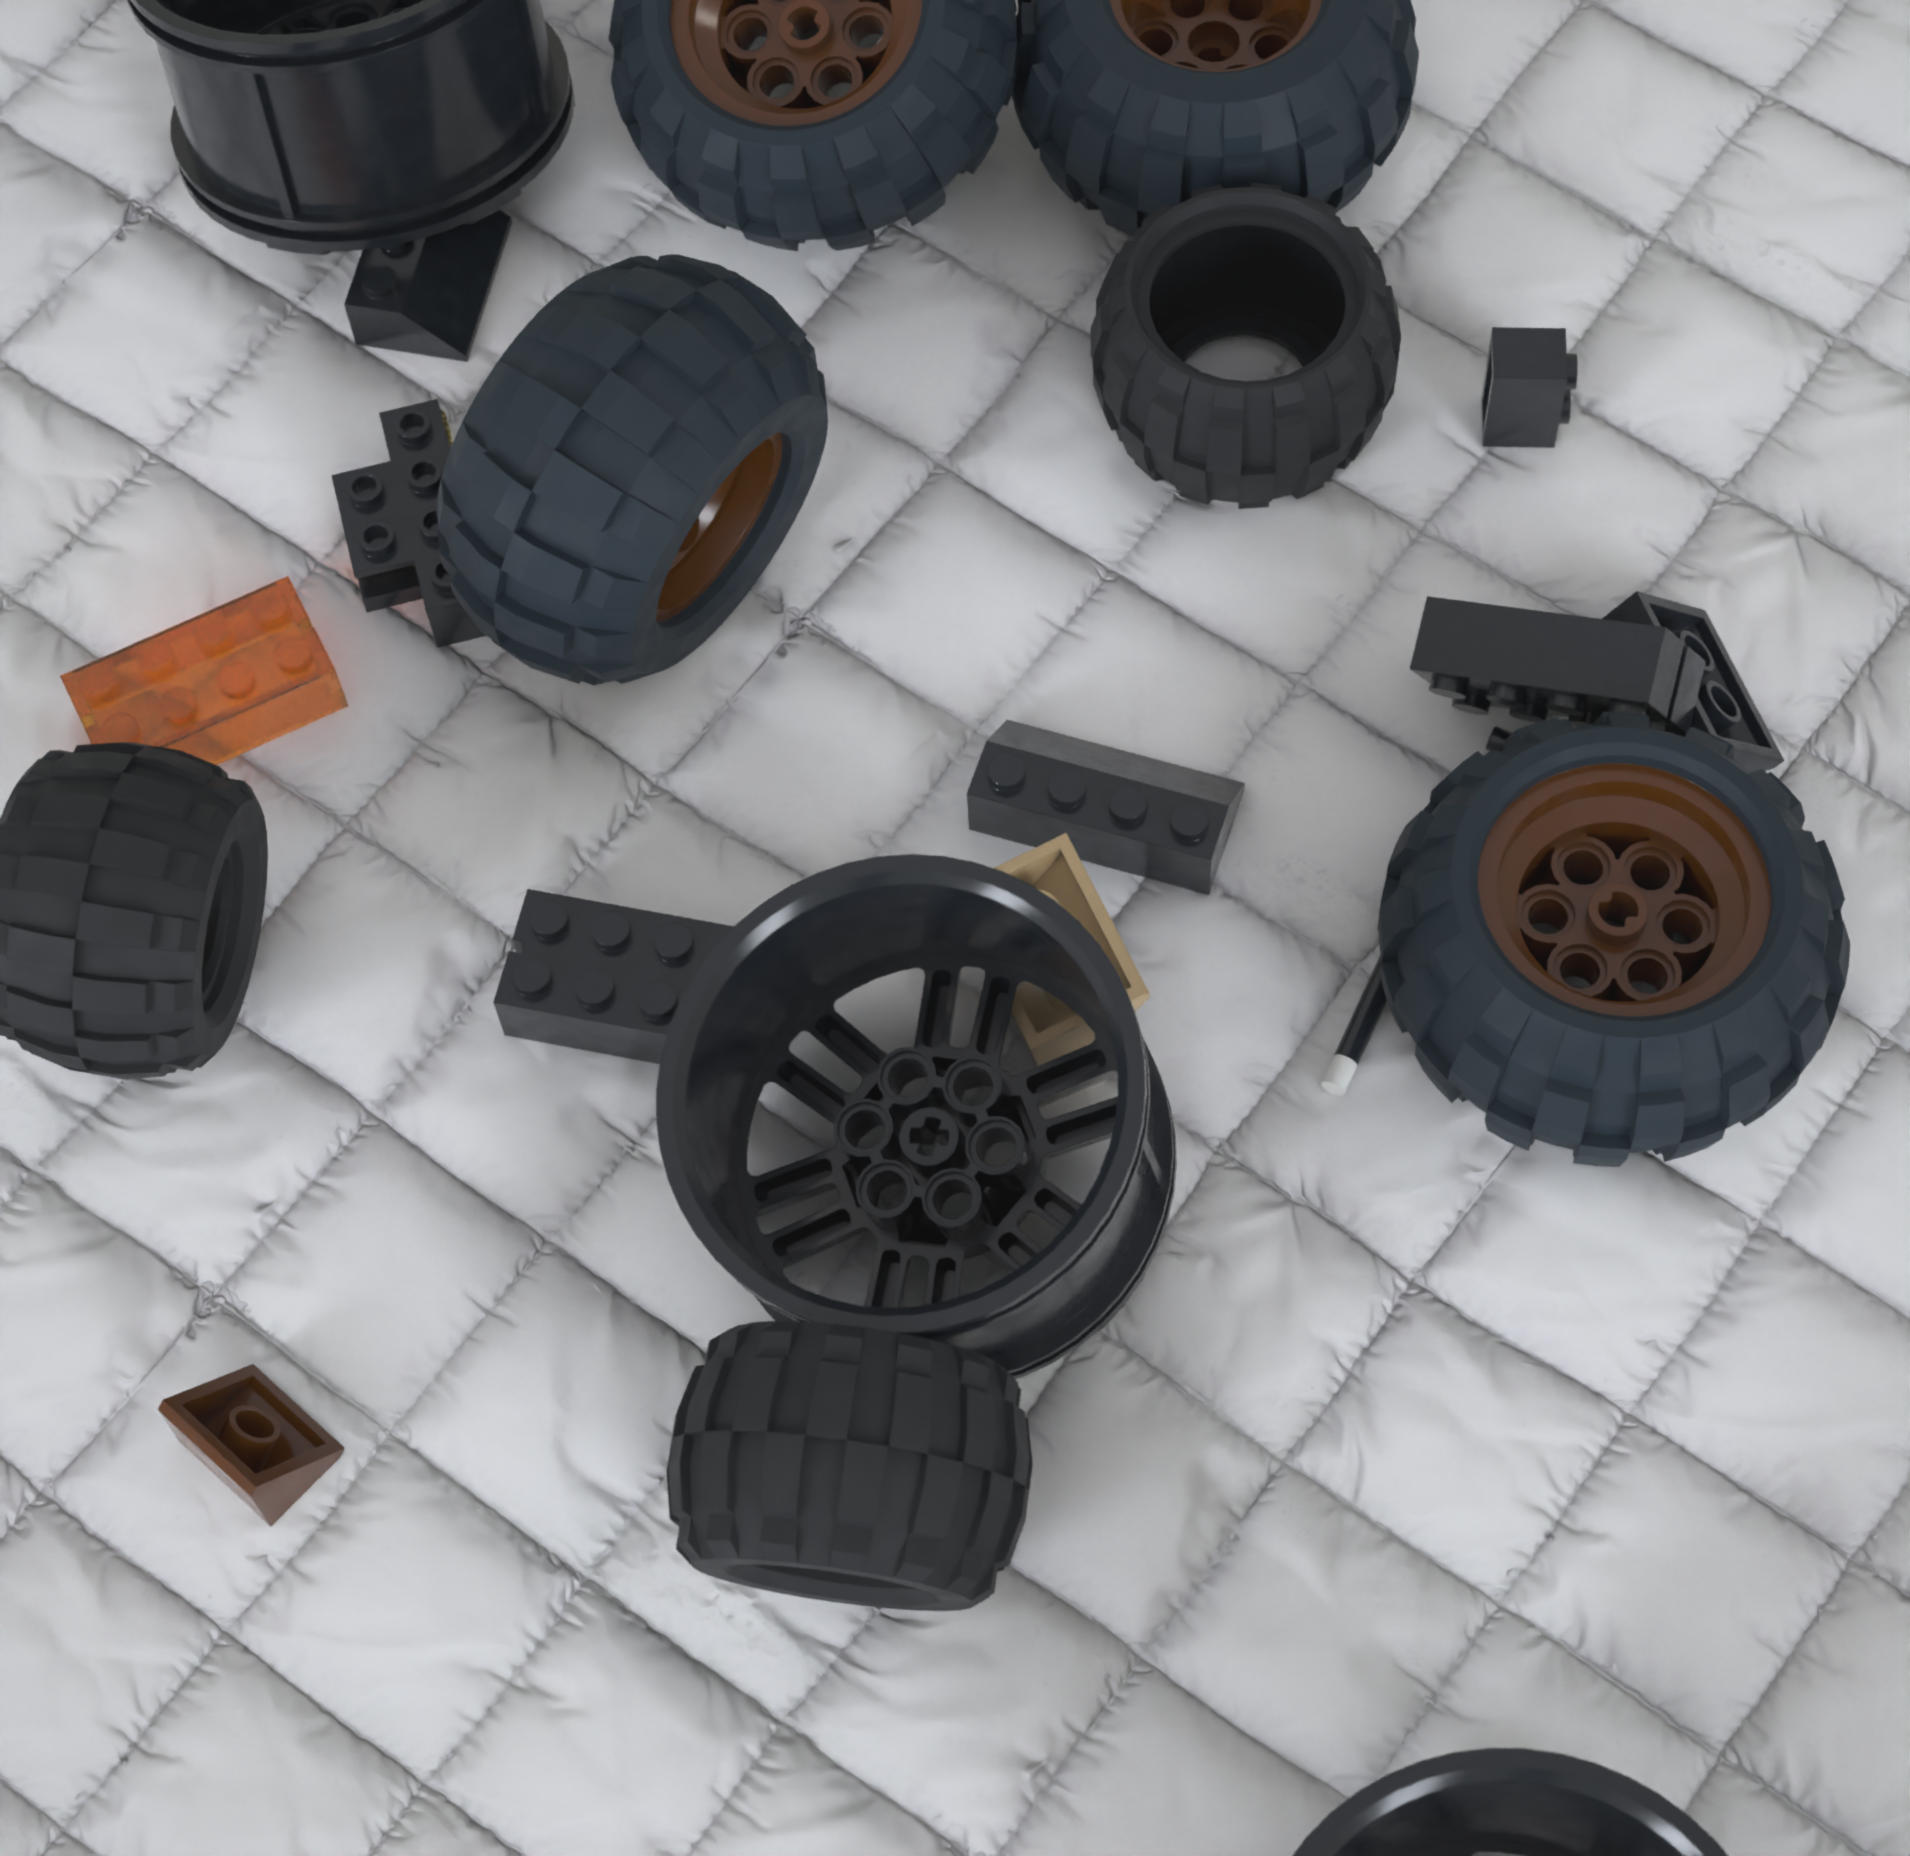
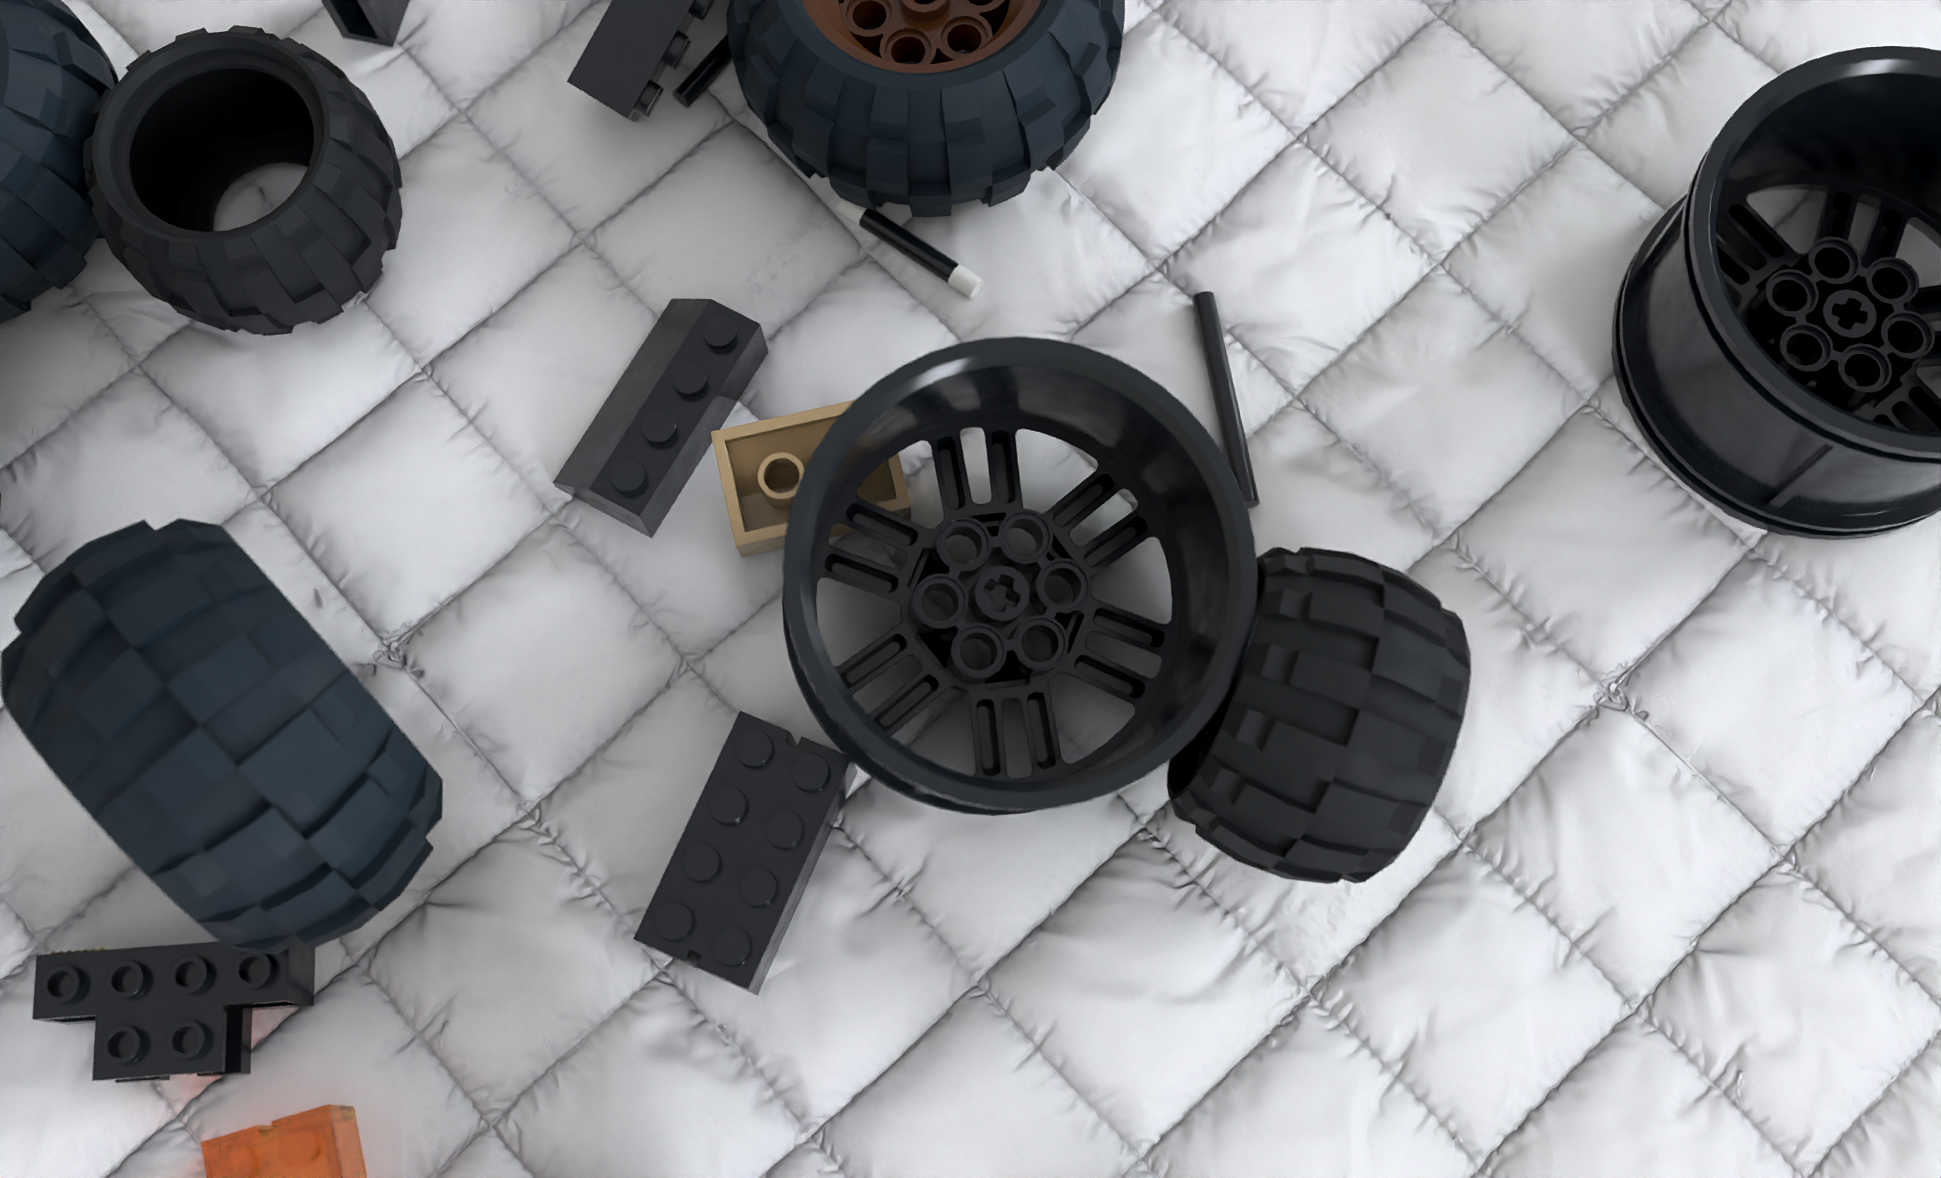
camera: 80 degrees left, 10 degrees up
(1257, 1379) = (1224, 395): none -> black bar

